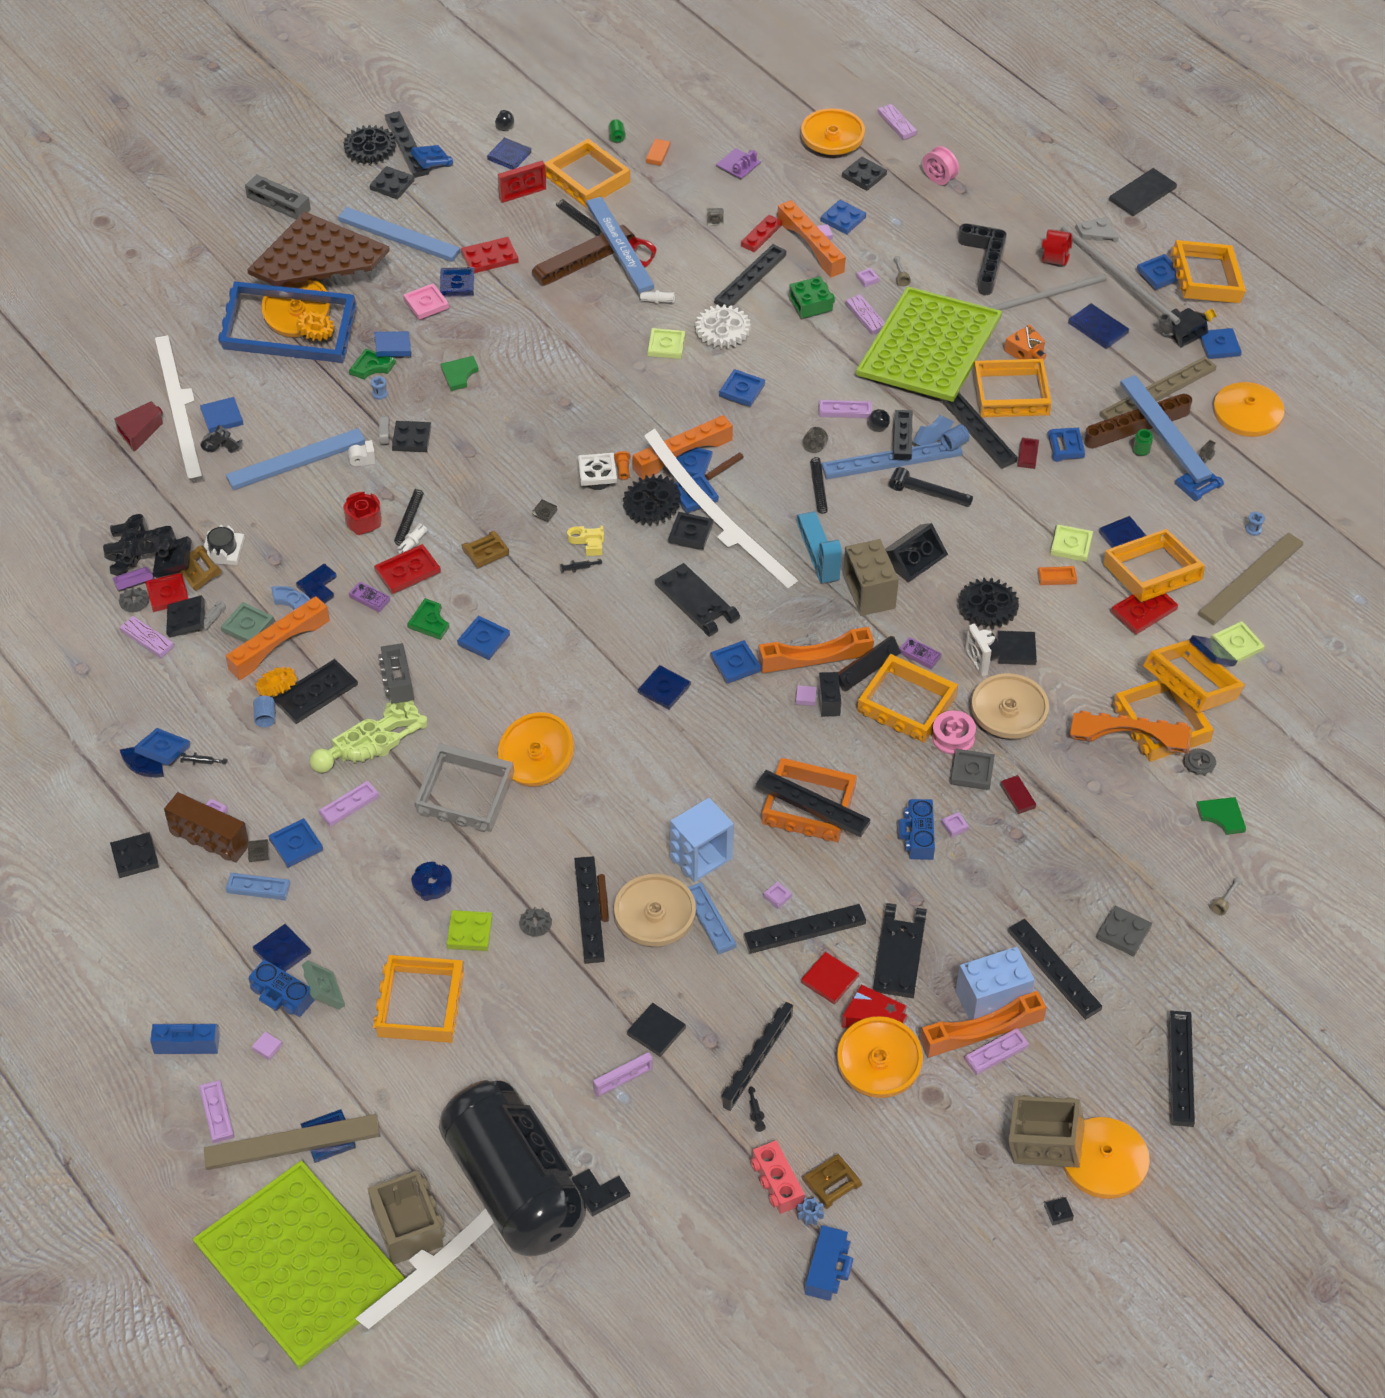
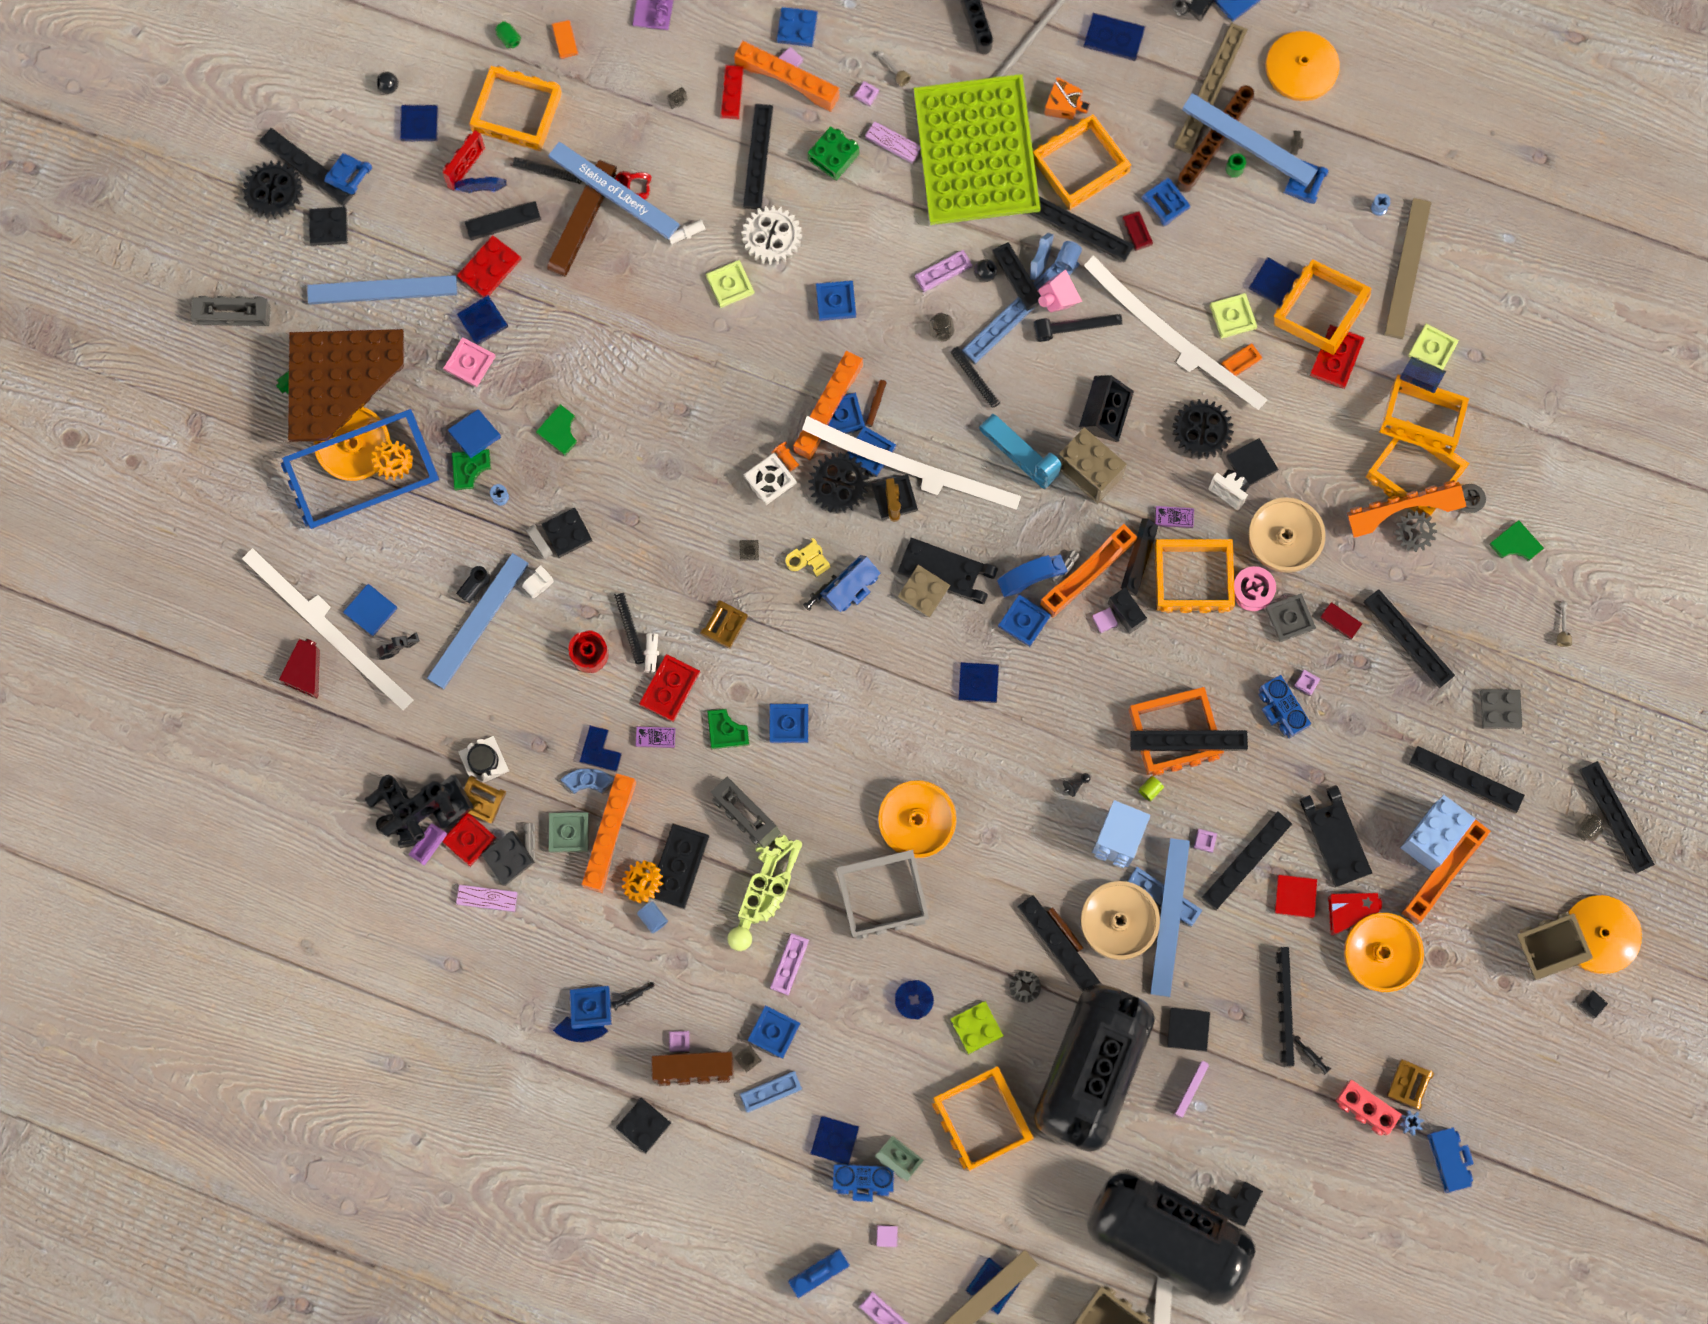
camera: 30 degrees left, 25 degrees up
(139, 603) = (443, 874): dark grey gear -> none
(317, 431) = (472, 586): none -> black piece
(520, 201) = (480, 184): none -> clear blue tile
(523, 233) = (502, 220): none -> black plate
(543, 997) = (1094, 1067): none -> black piece
(610, 565) = (854, 578): none -> piece
(666, 601) = (924, 591): none -> dark tan plate
(684, 520) = (893, 503): none -> pearl gold plate
(689, 795) = (1072, 786): none -> black piece
(701, 932) = (1170, 917): none -> medium blue tile
(756, 830) = (1151, 788): none -> lime beam
(764, 623) = (1031, 572): none -> blue arch
(928, 456) = (1058, 293): none -> bright pink torso
(996, 1051) = (1465, 887): lavender tile -> none
(1015, 551) = (1190, 354): none -> white sticker
(1072, 835) = (1409, 638): none -> black plate
(1128, 765) = (1407, 527): none -> dark grey gear
(1148, 1061) = (1589, 827): none -> clear smoke head

